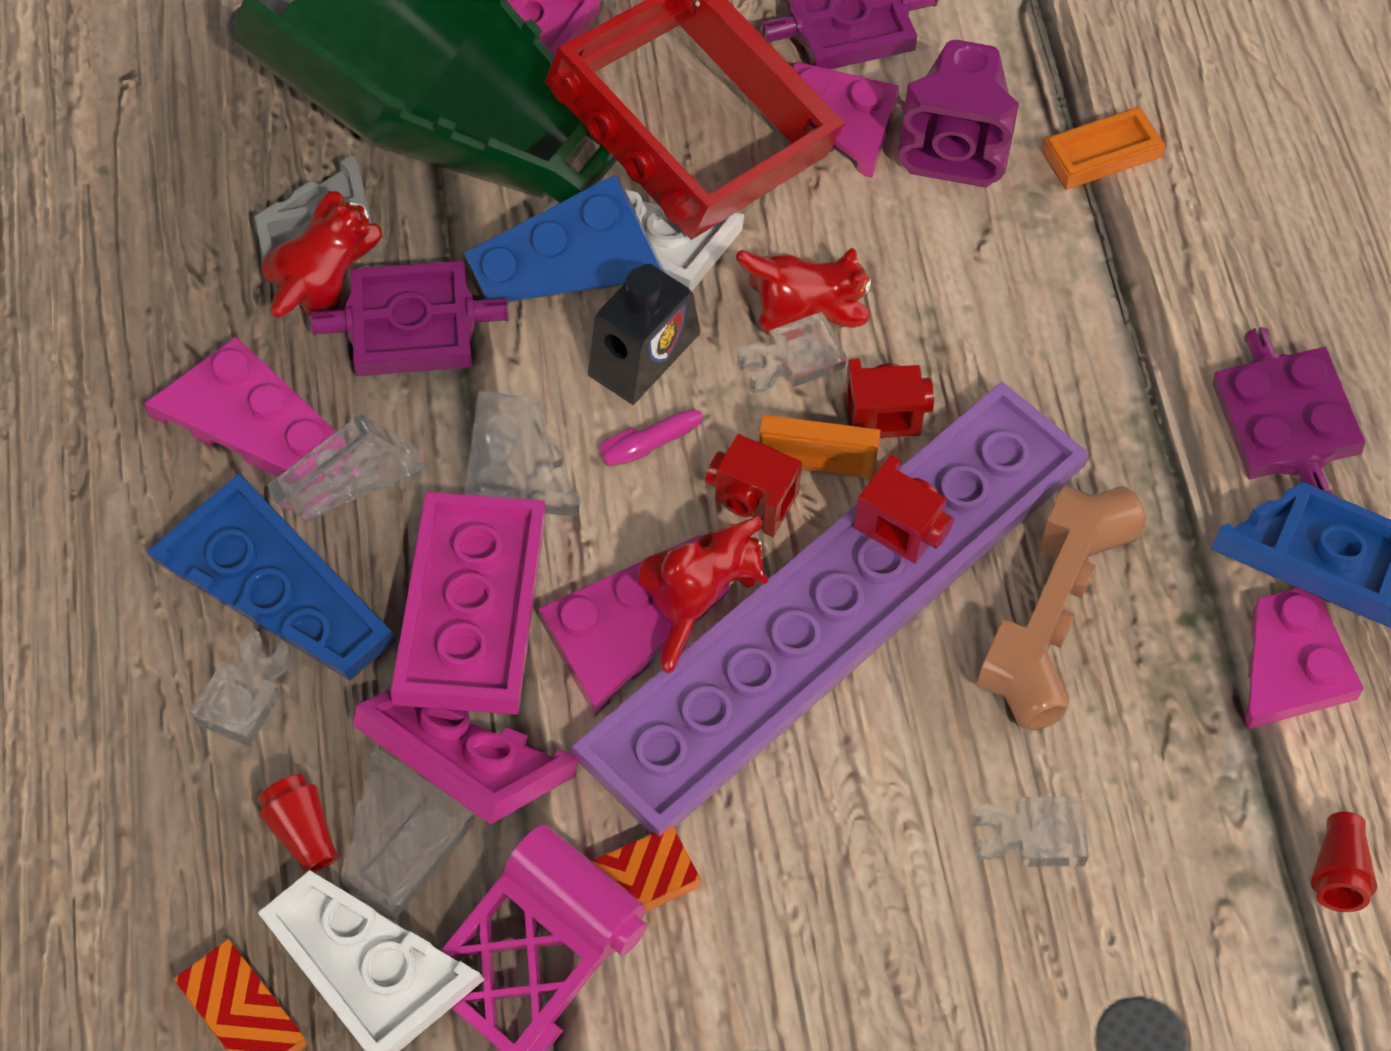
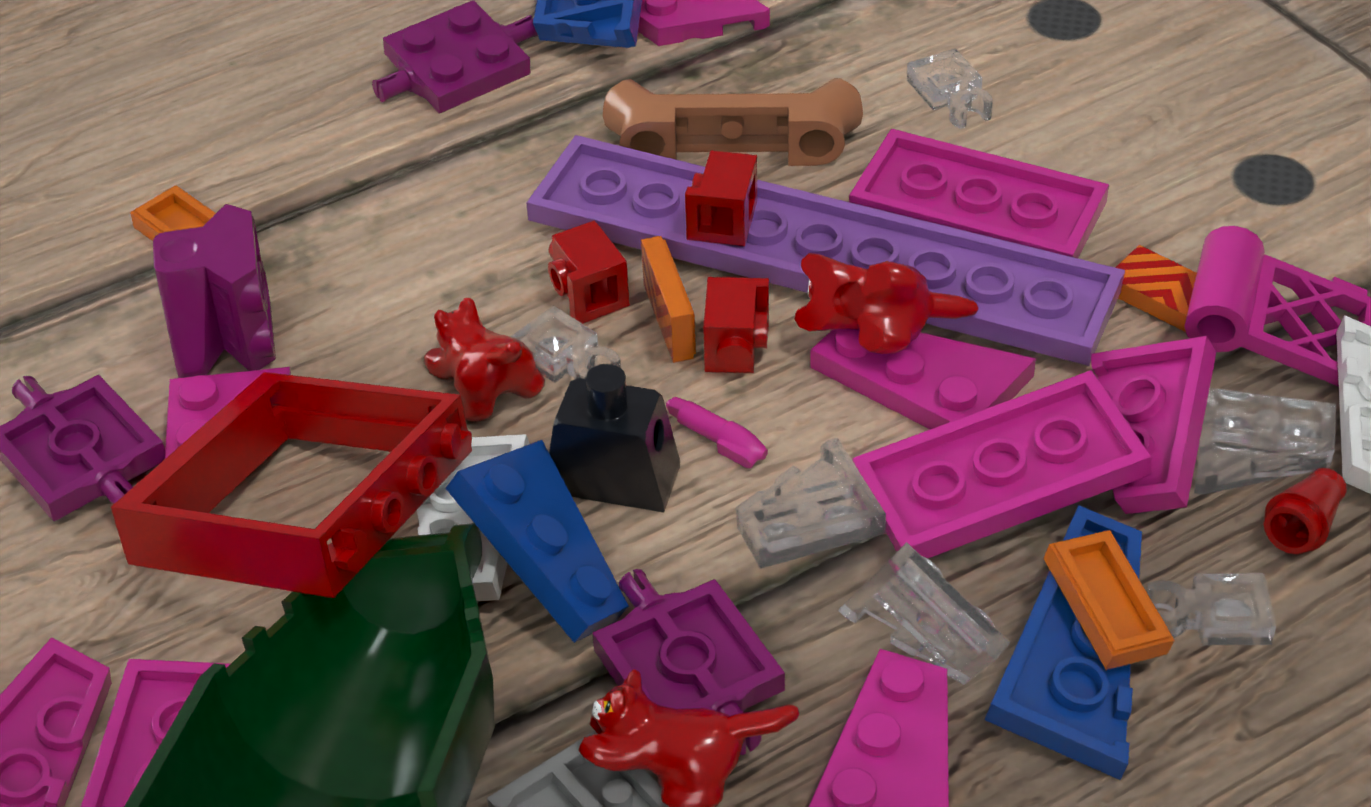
camera: 110 degrees left, 15 degrees down
(283, 599) = (1108, 599): none -> orange tile
(838, 769) = (981, 193): none -> dark pink plate

